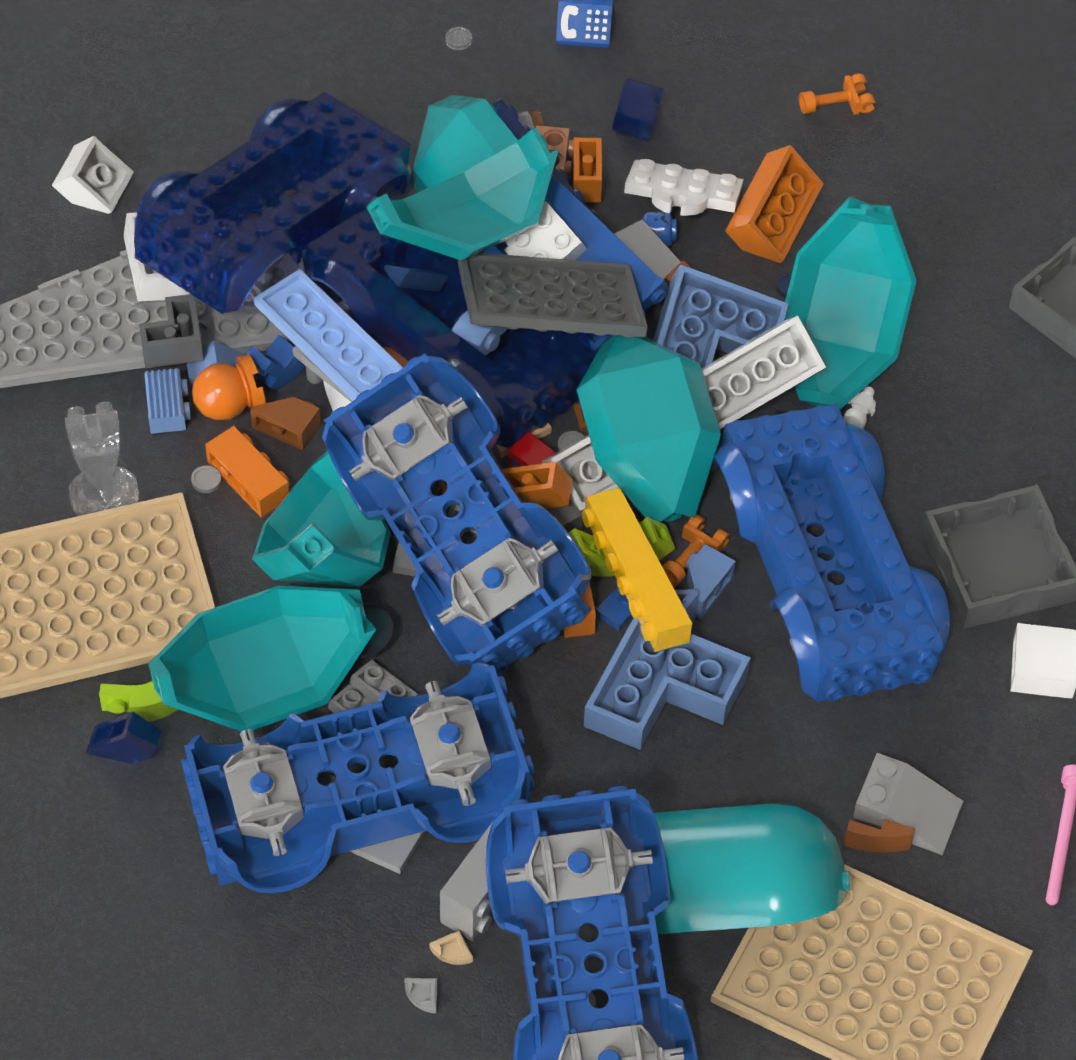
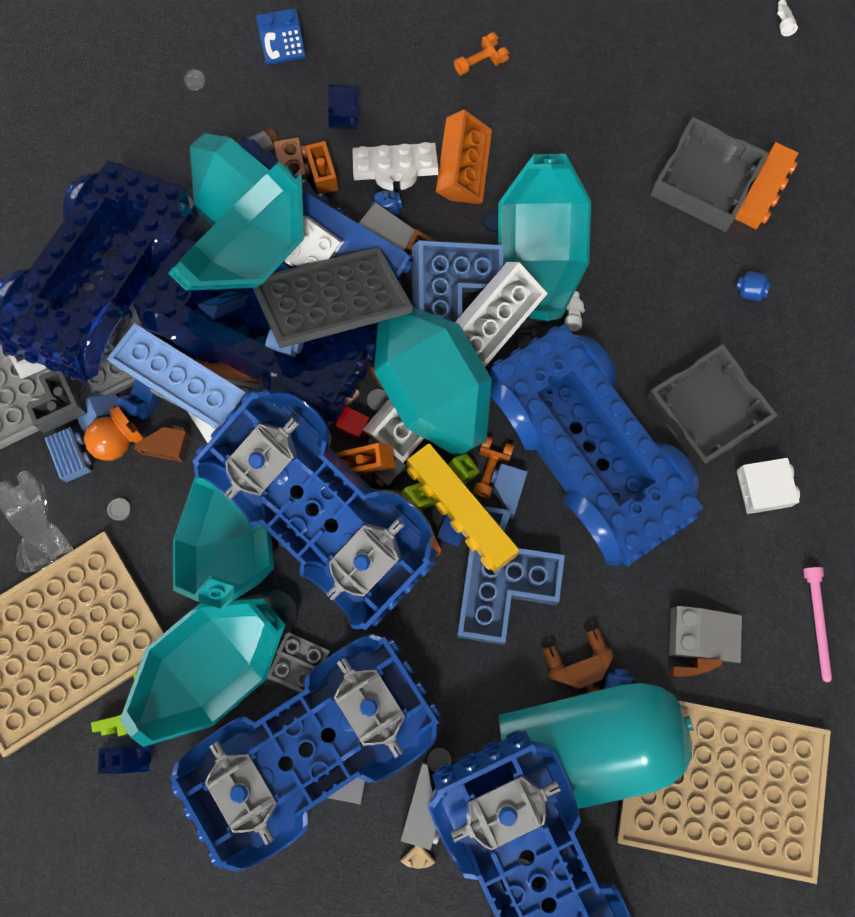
camera: 15 degrees left, 20 degrees up
(247, 471) = (148, 496): orange brick -> none
(422, 993) = (407, 902): light grey tile -> none
(705, 796) = (584, 672): none -> dark orange connector

